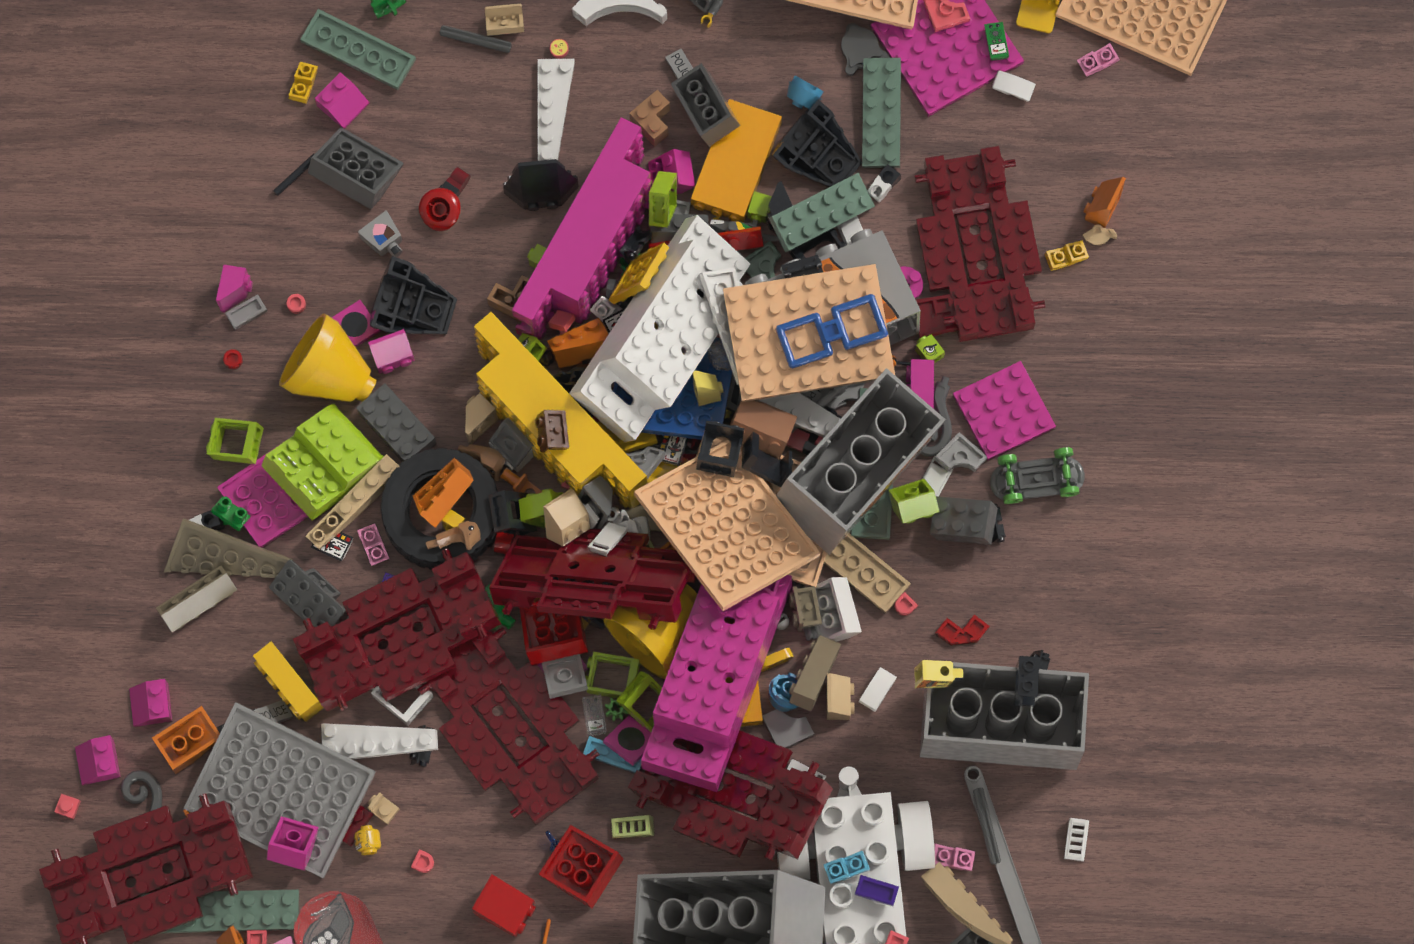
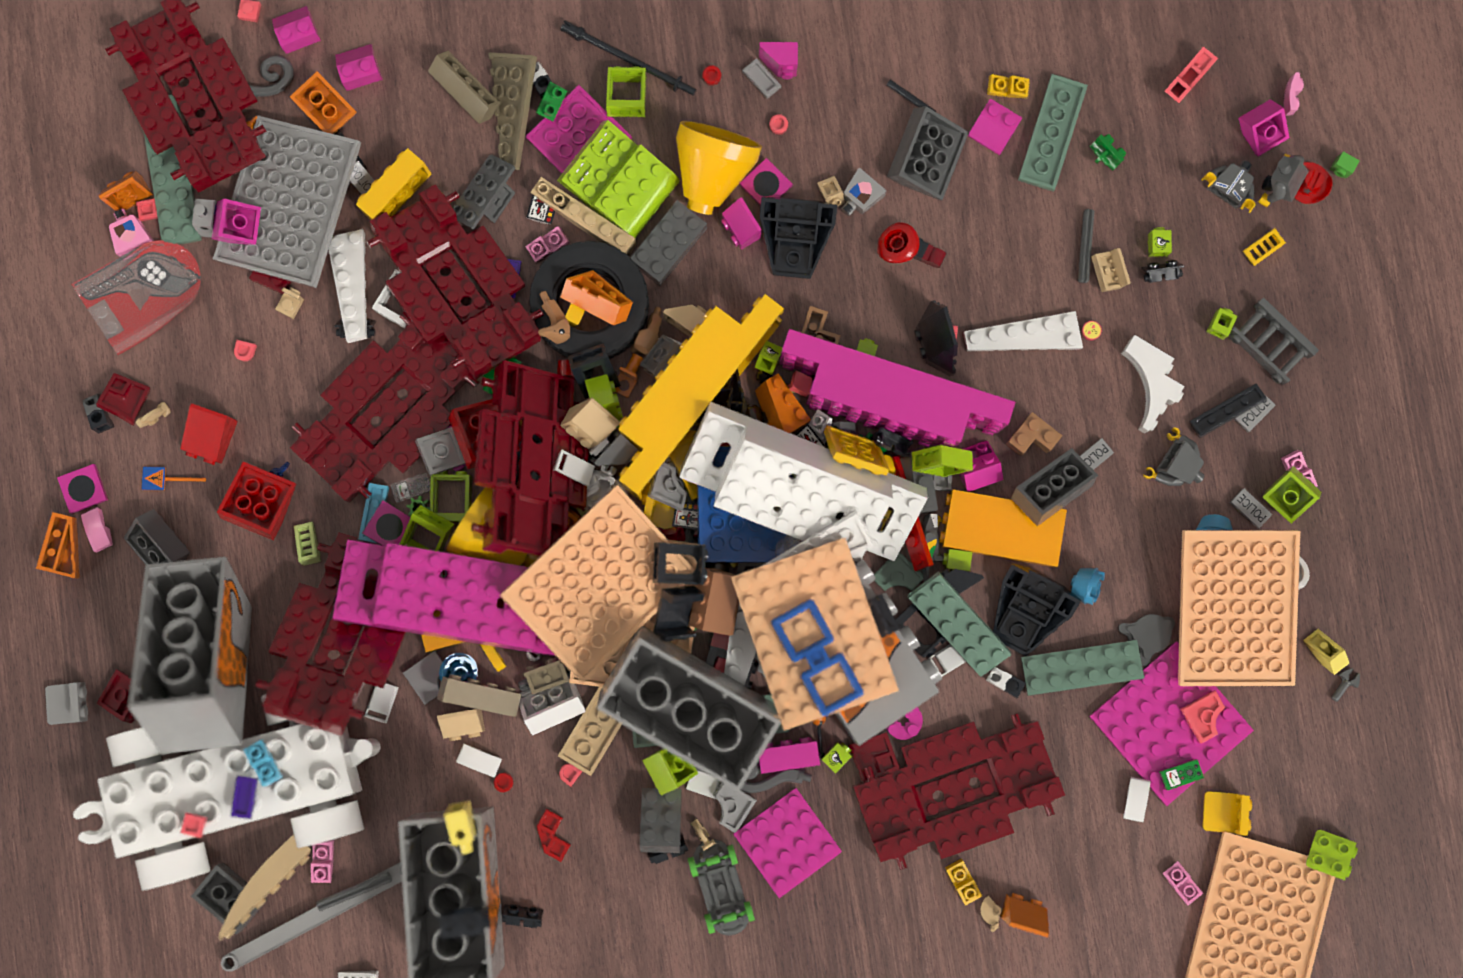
camera: 75 degrees right, 10 degrees up
(164, 478) = (580, 34): none -> black bar
(279, 875) = (204, 216): none -> light grey torso
(367, 840) = (254, 294): yellow head -> none
(374, 263) = (831, 191): none -> tan bracket
(552, 430) = (666, 391): reddish brown bracket -> none
(706, 388) = (749, 539): light yellow slope -> none
(903, 670) = (503, 782): none -> red tile
(984, 488) = (702, 834): none -> tan piece

